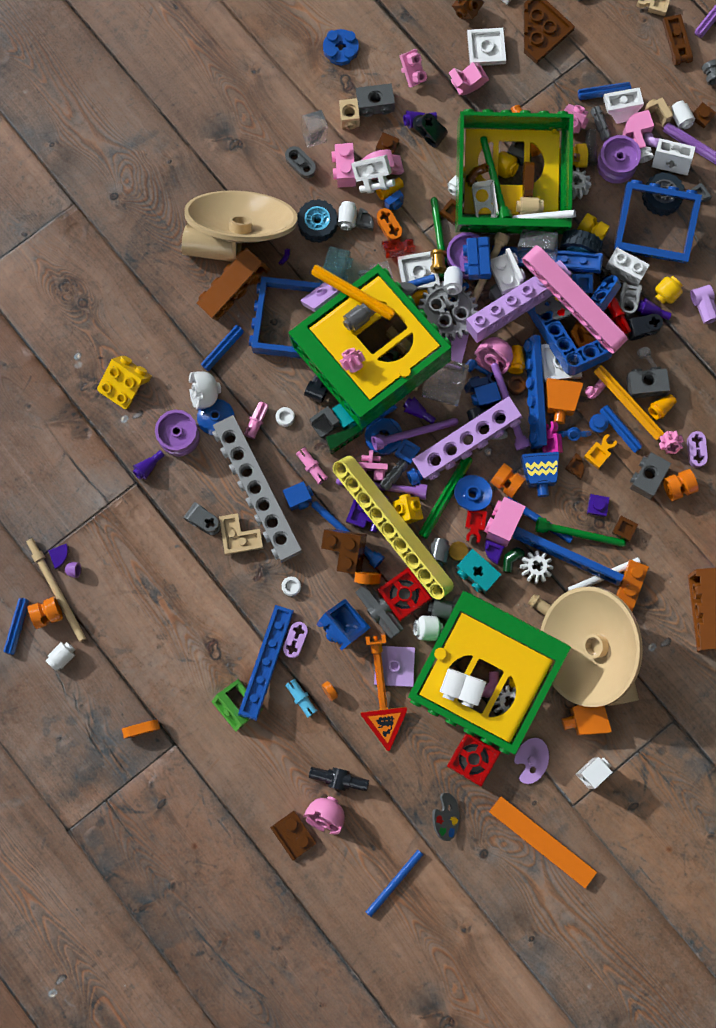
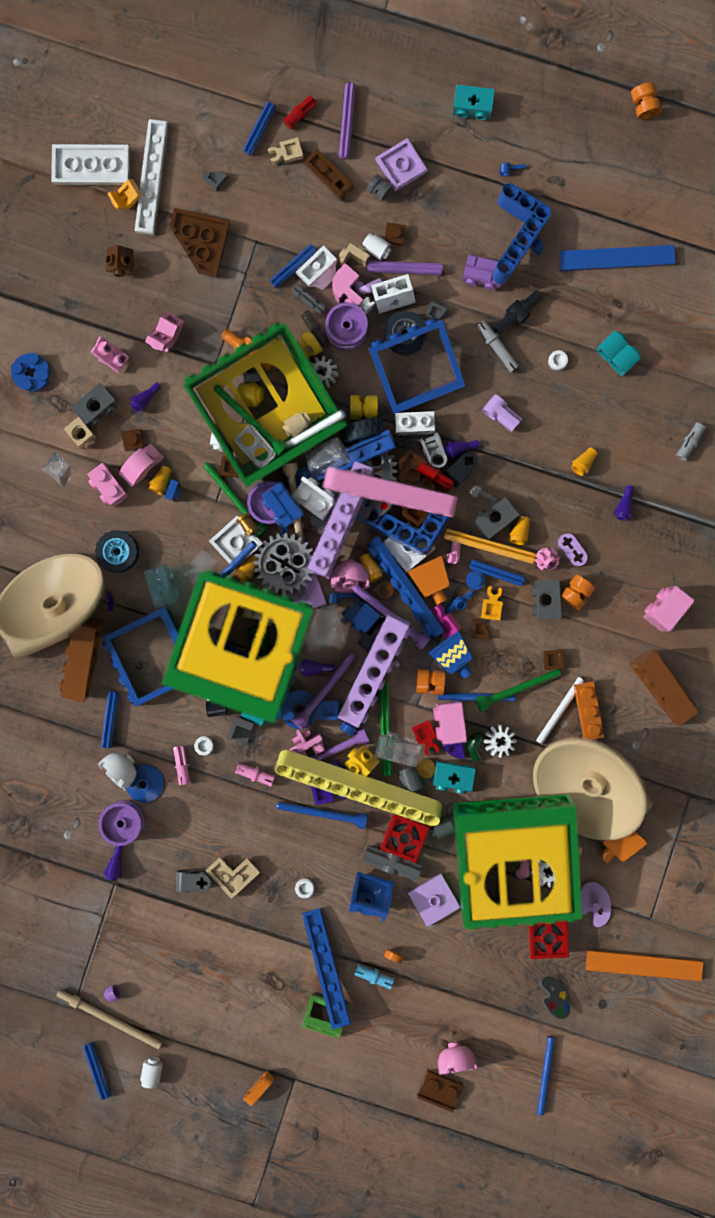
camera: 35 degrees left, 10 degrees up
(46, 612) = (111, 1049): orange wheel -> none
(59, 555) = (91, 989): dark purple tile -> none
(122, 381) = (43, 804): yellow bracket -> none
(230, 427) = (217, 816): light grey brick -> none
(298, 496) = (261, 809): blue brick -> none
(299, 642) = (333, 932): lavender beam -> none
(301, 163) = (67, 506): dark grey plate -> none
(319, 297) = (168, 624): lavender plate -> none
(339, 779) = (448, 1023): black pin -> none
(341, 439) = (263, 740): dark green slope -> none
(347, 215) = (140, 530): white brick -> none
(350, 548) = (333, 827): reddish brown brick -> none
(352, 360) = (235, 678): bright pink gear -> none
(353, 292) = (195, 612): light orange axle -> none
(357, 317) = (213, 635): dark grey brick -> none
(364, 220) = (158, 523): dark grey tile -> none
(367, 577) = (365, 843): orange beam -> none
(373, 168) = (136, 478): white plate -> none
(385, 227) = (180, 518): orange beam -> none
(385, 721) = (455, 951): piece -> none
(394, 475) = (330, 738): dark grey axle -> none
(396, 248) = (203, 533): clear red plate -> none
(408, 288) = (236, 570): dark grey tile -> none
(427, 628) = (442, 851): white head -> none
(430, 129) = (161, 403): black piece -> none
(445, 518) = (398, 750): none -> clear brick
(453, 280) = (273, 537): white brick -> none
(462, 687) = (506, 895): white brick -> none
(475, 172) = (229, 425): reddish brown arm -> none
(477, 486) = (414, 704): blue dish -> none
(486, 46) = (162, 290): white plate -> none
(528, 179) = (280, 401): reddish brown beam -> none
(539, 604) = (522, 770): tan pin -> none
(568, 556) = (522, 716): blue tile -> none
(580, 120) = (284, 311): bright pink brick -> none
(584, 281) = (386, 466): blue plate -> none
(594, 772) = (653, 886): white brick -> none
(598, 505) = (518, 652): dark purple plate -> none
(607, 288) = (411, 455): blue beam -> none
(668, 290) = (463, 421): yellow head -> none

